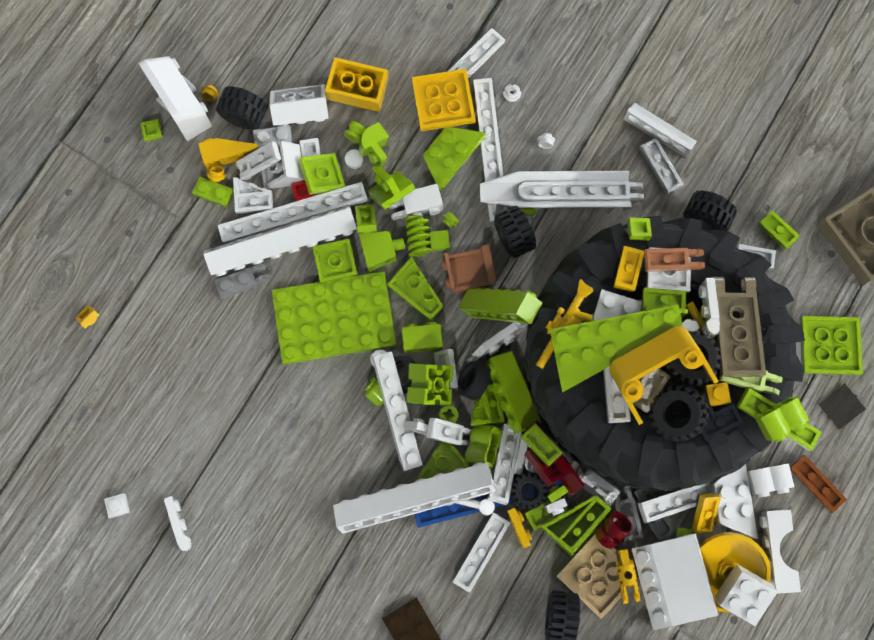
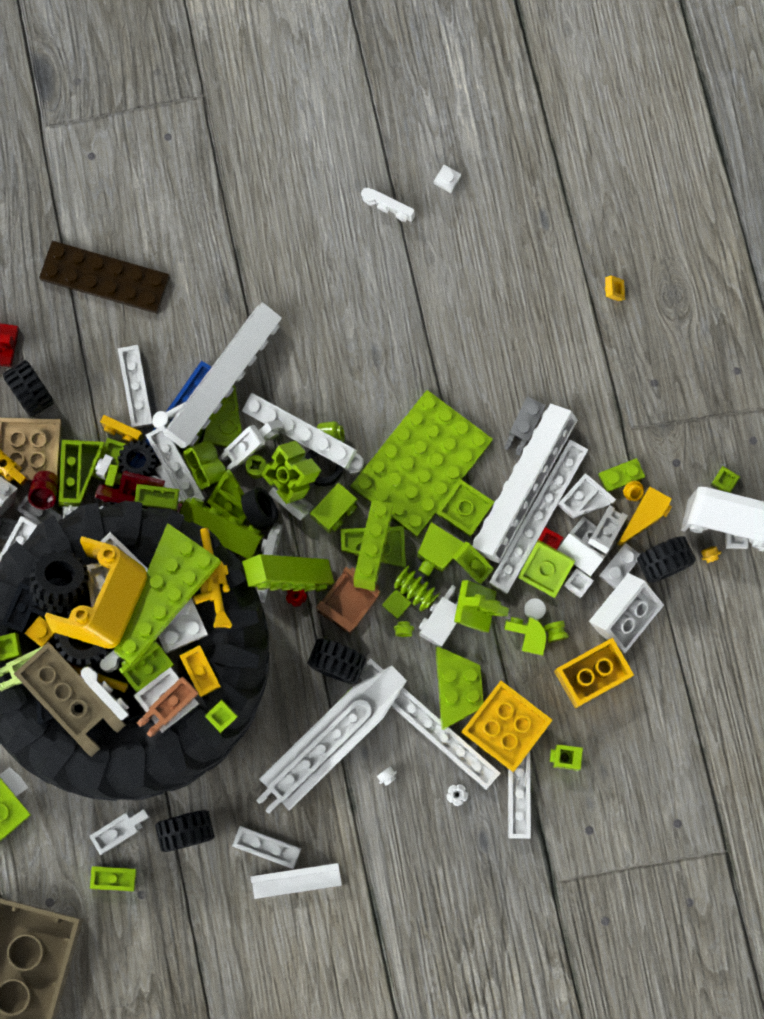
camera: 135 degrees right, 0 degrees up
(420, 284) = (373, 545): none -> lime brick
(423, 48) = (573, 753): none -> lime brick

